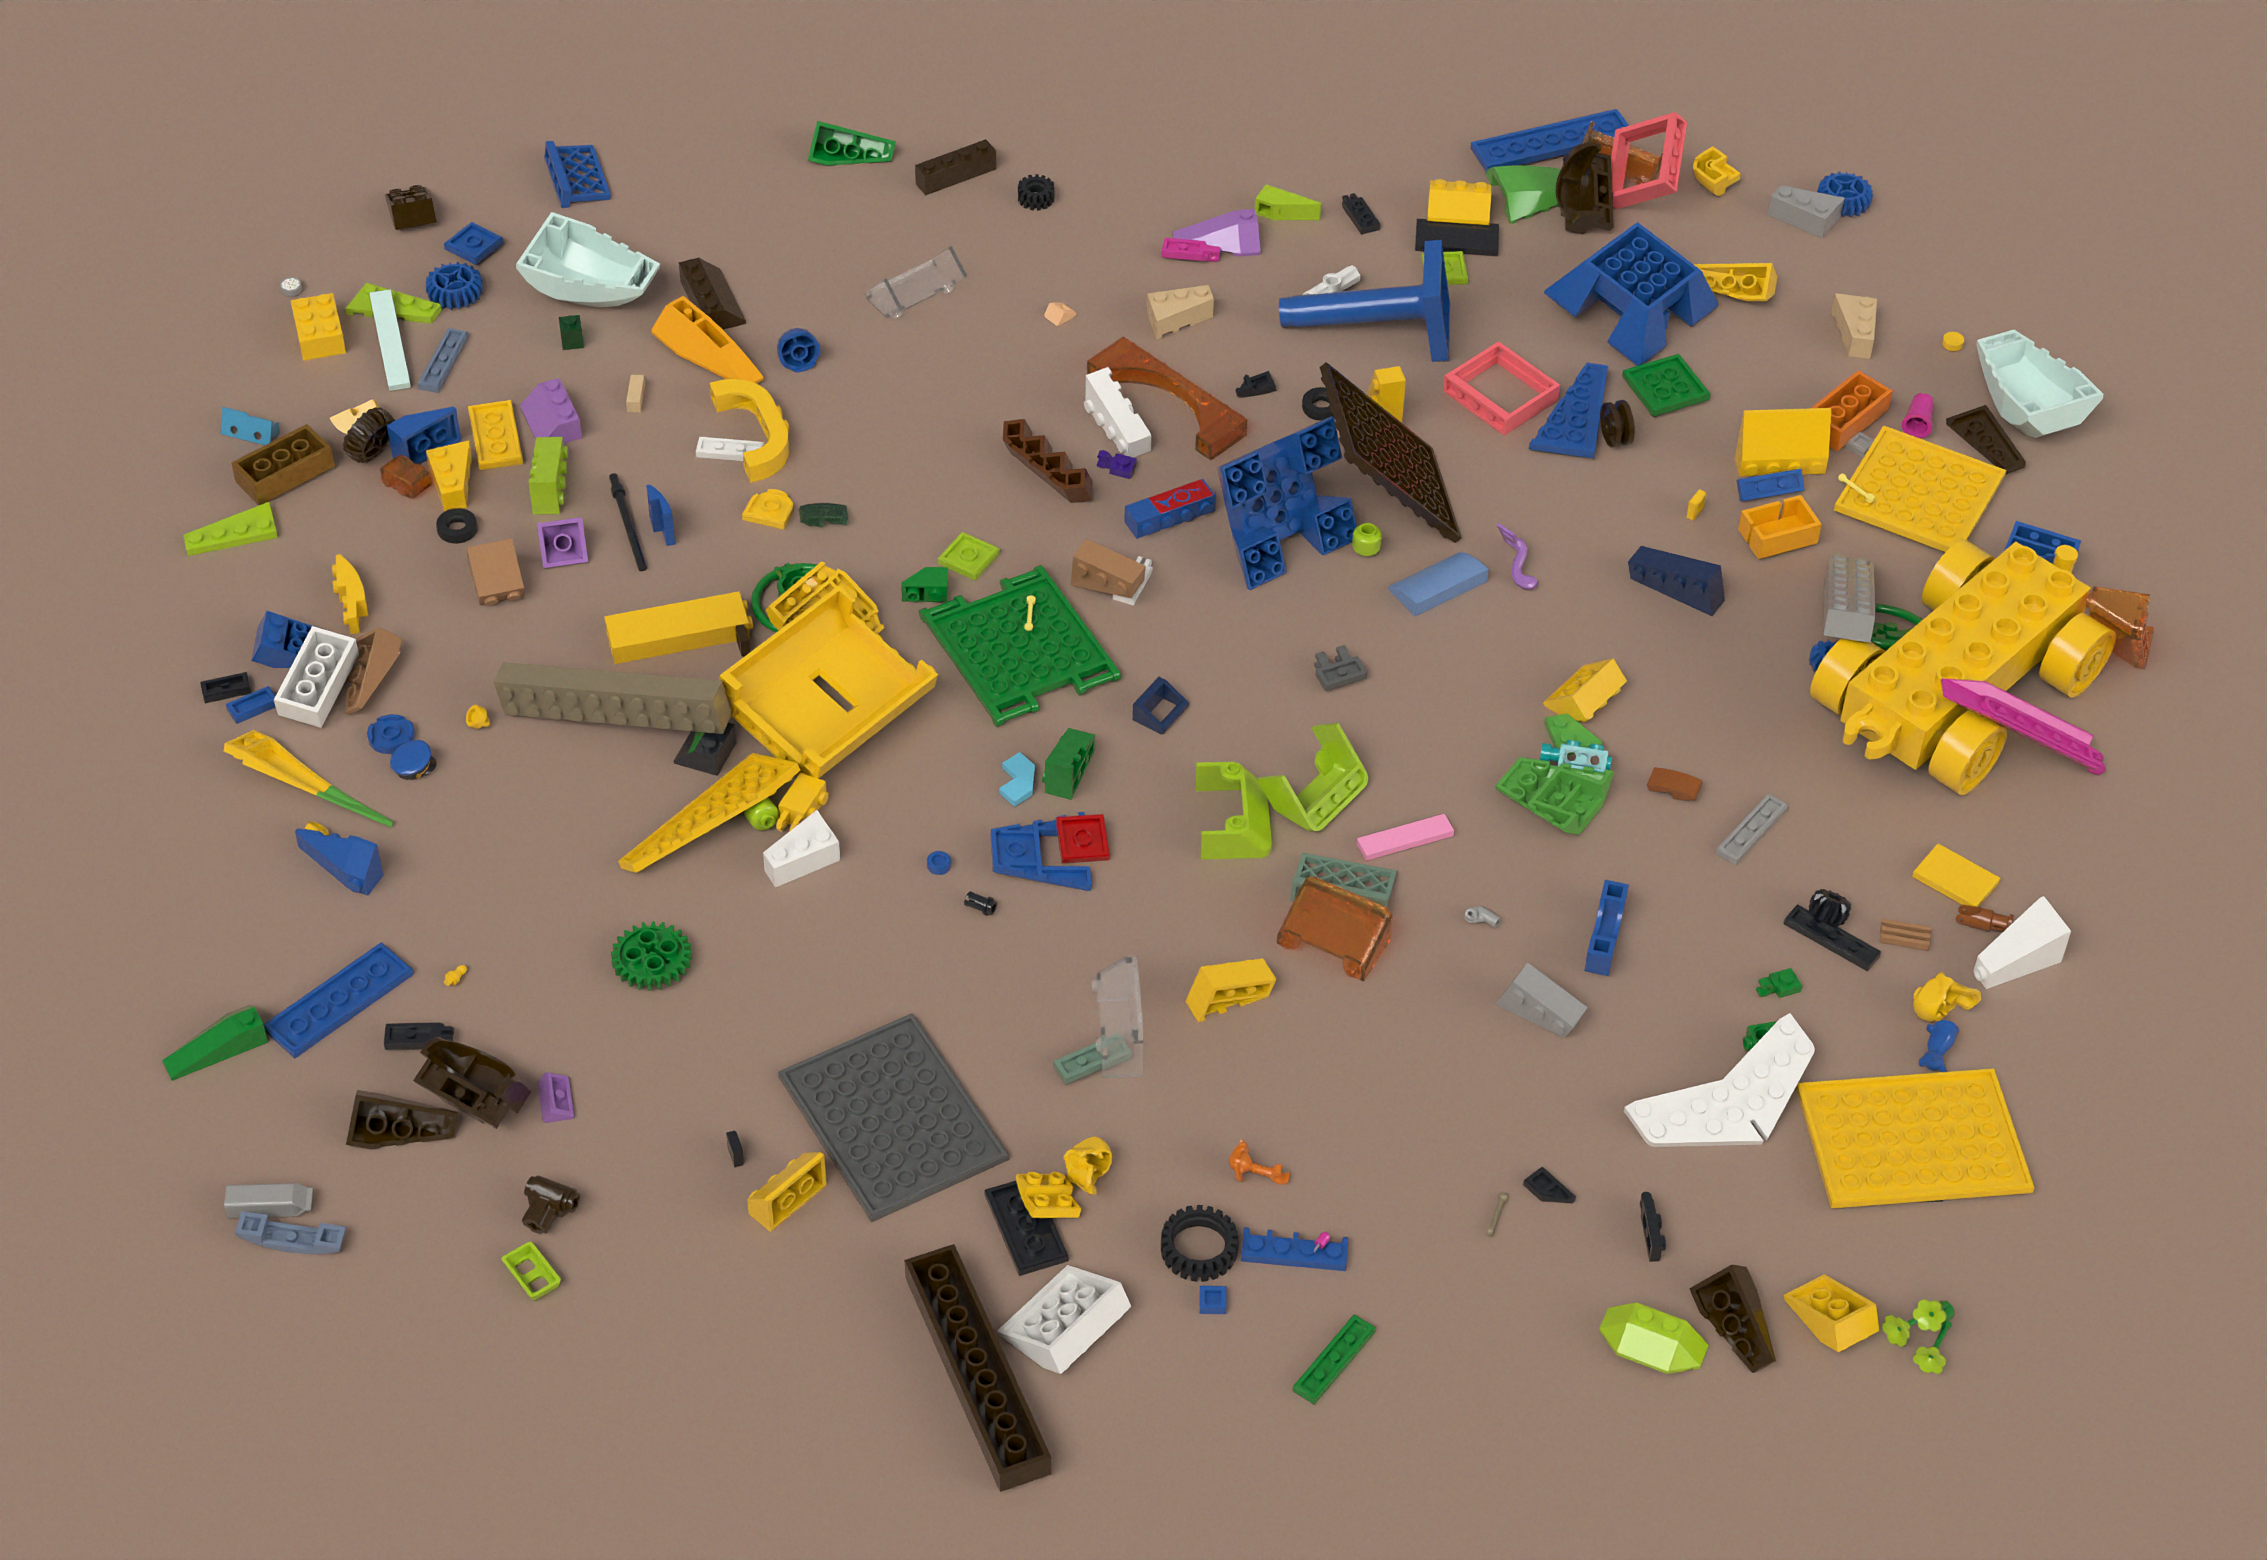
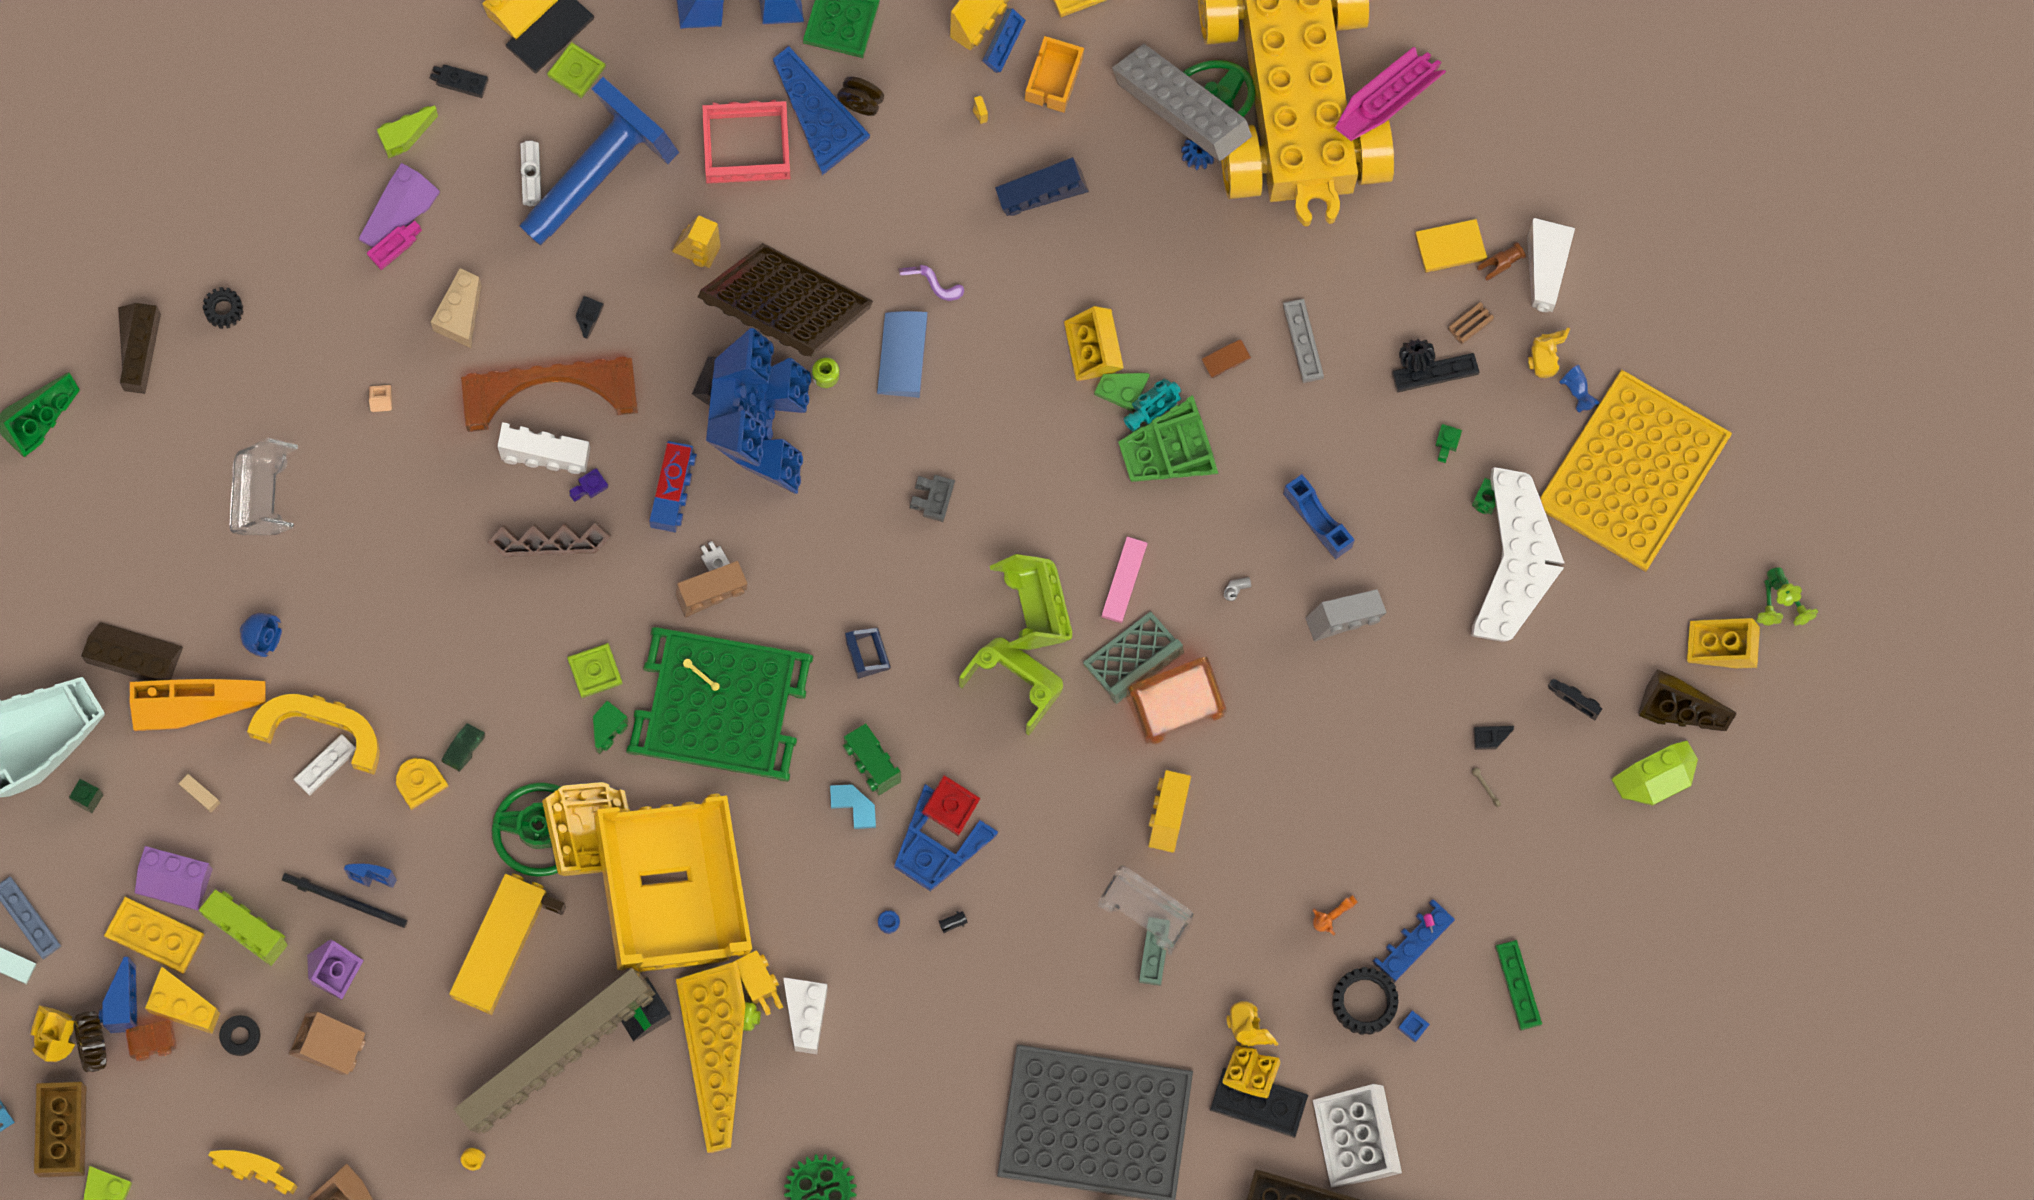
camera: 55 degrees left, 25 degrees up
(1313, 411) = (649, 272): black tyre -> none

